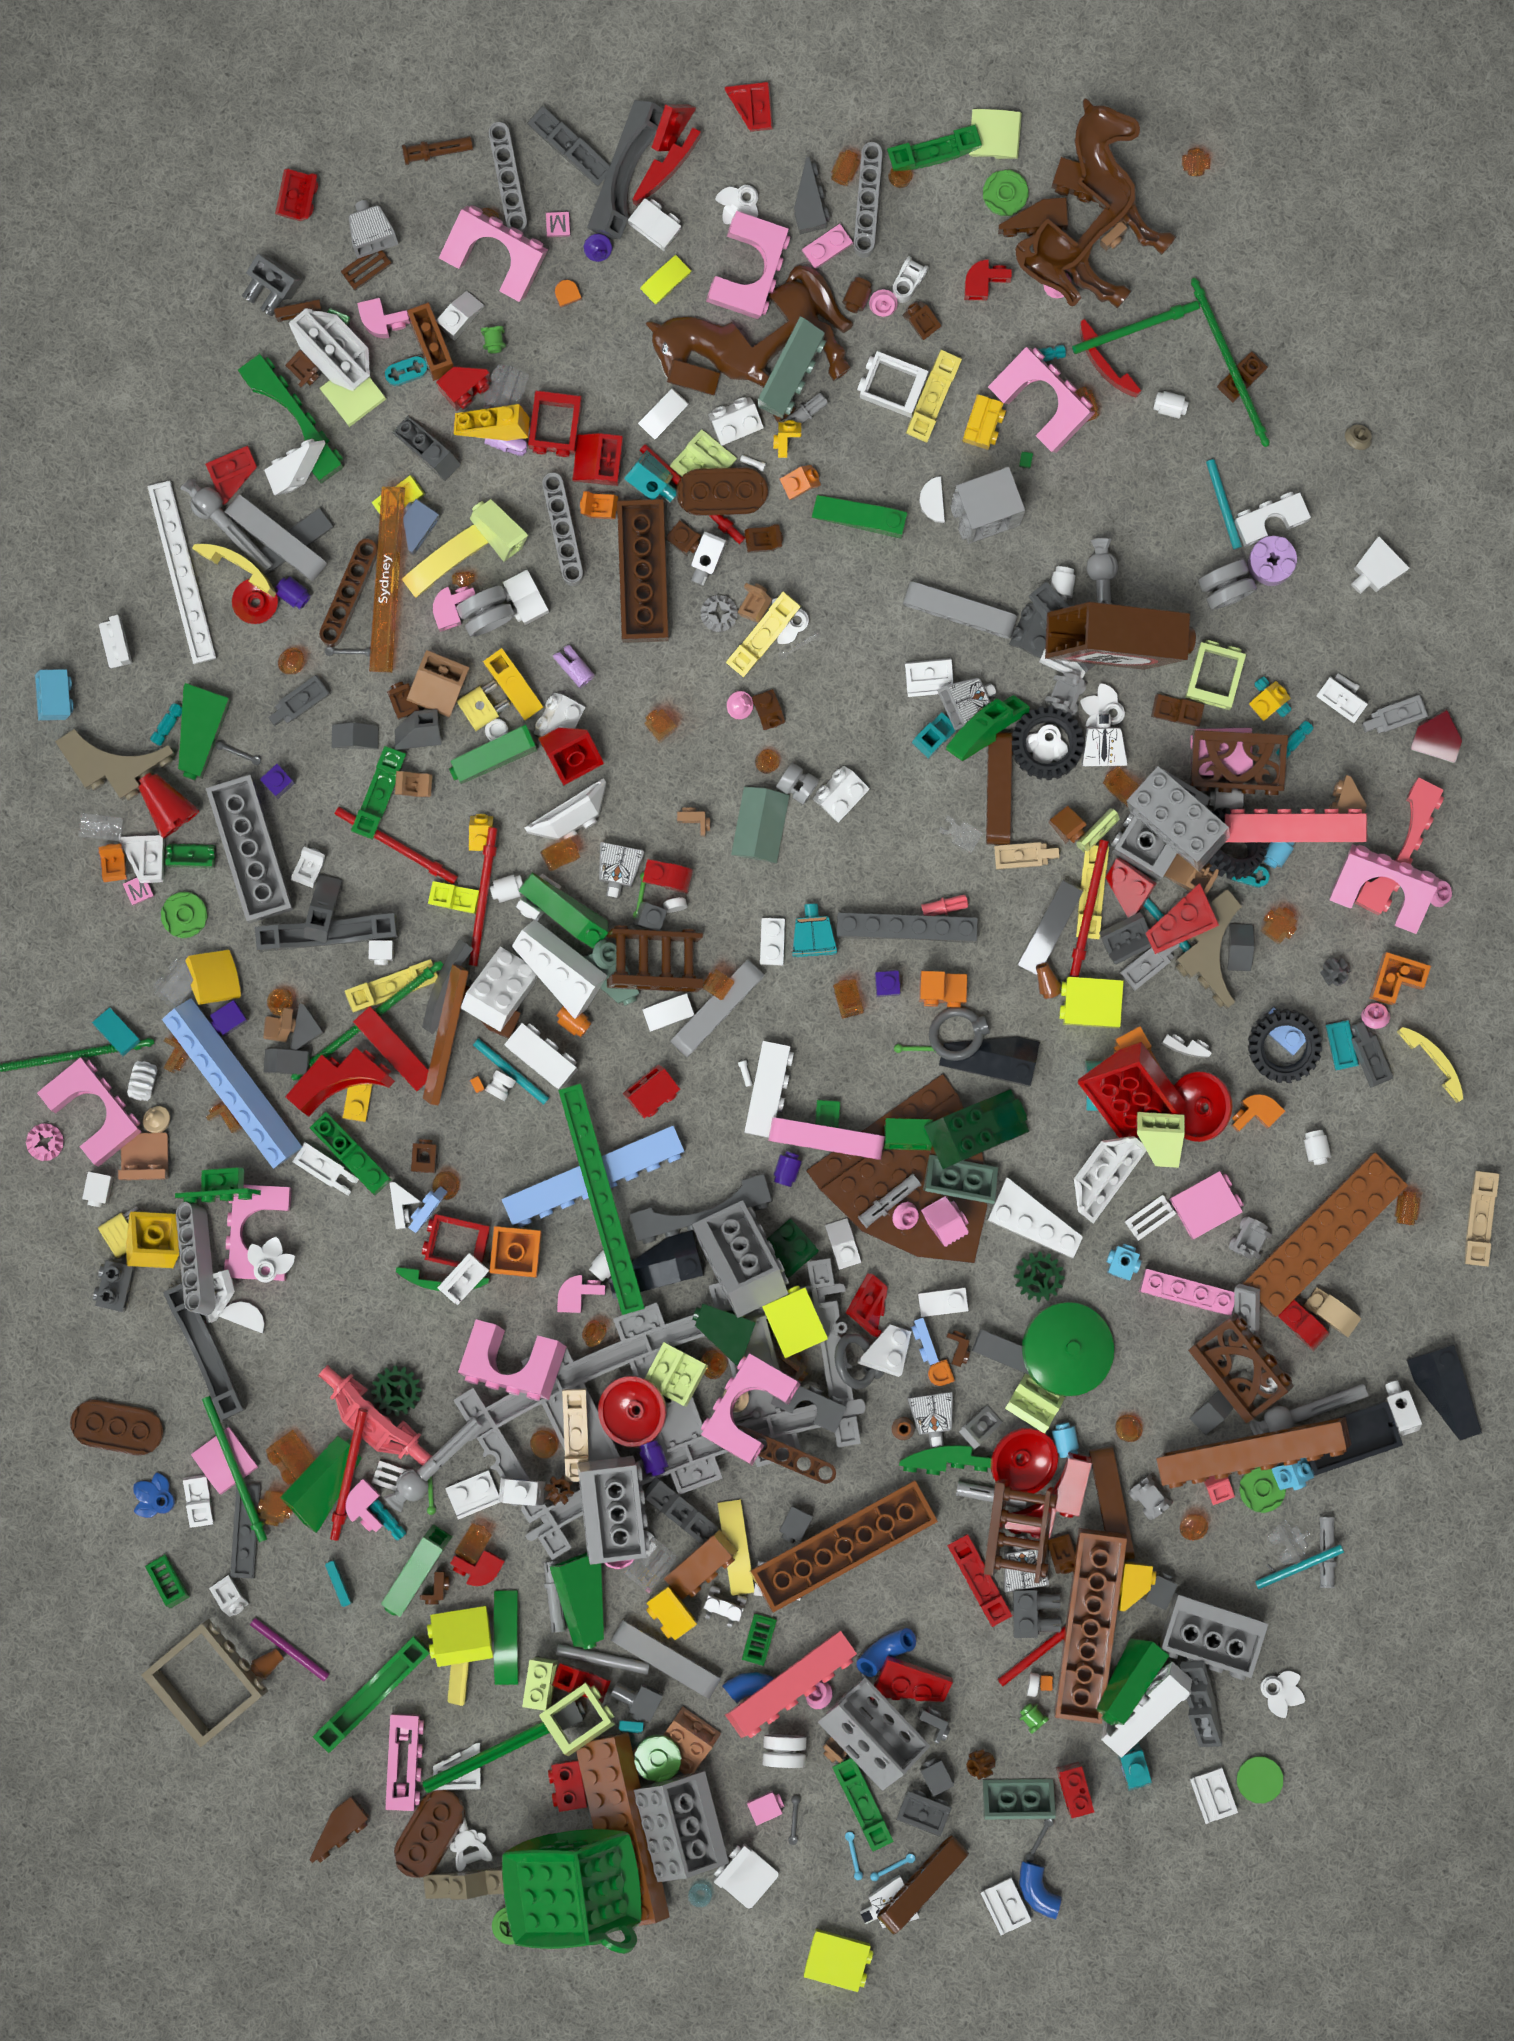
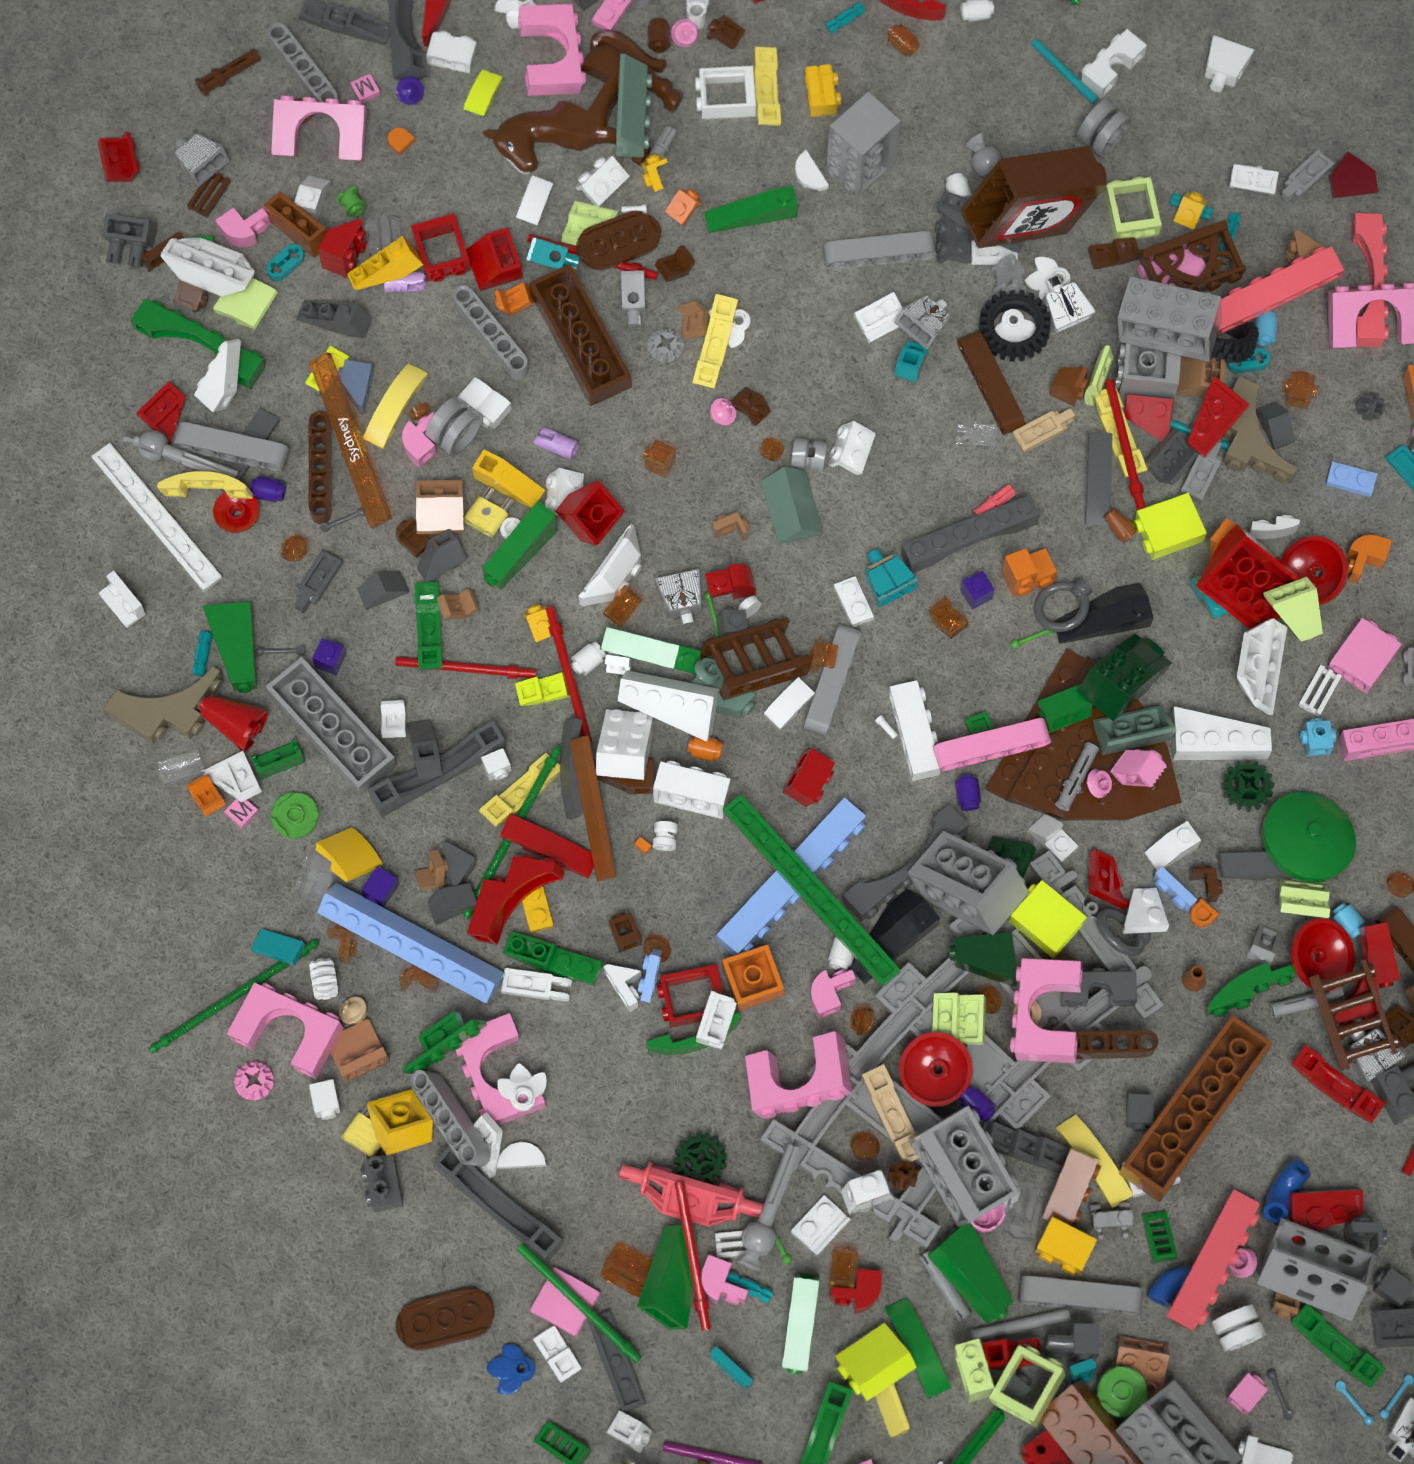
camera: 25 degrees left, 15 degrees down
(53, 694) = (83, 670): medium azure brick -> none
(273, 1508) = (635, 1324): clear orange brick -> none
(278, 1000) = (419, 851): clear orange hat -> none
(441, 1584) = (831, 1325): reddish brown bracket -> none
(498, 529) = (433, 354): yellowish green slope -> none
(512, 1072) = (655, 817): teal bar -> none
(684, 538) = (604, 296): reddish brown bracket -> none
(693, 377) = (546, 158): reddish brown slope -> none
(932, 1415) = (1215, 953): torso -> none
(984, 726) = (952, 331): green slope -> none
(1071, 411) = (842, 26): bright pink arch -> none
(1120, 785) = (1098, 335): clear orange bracket -> none
(1279, 549) = (1133, 93): lavender brick -> none
(1293, 1071) = (1382, 471): black tyre -> none

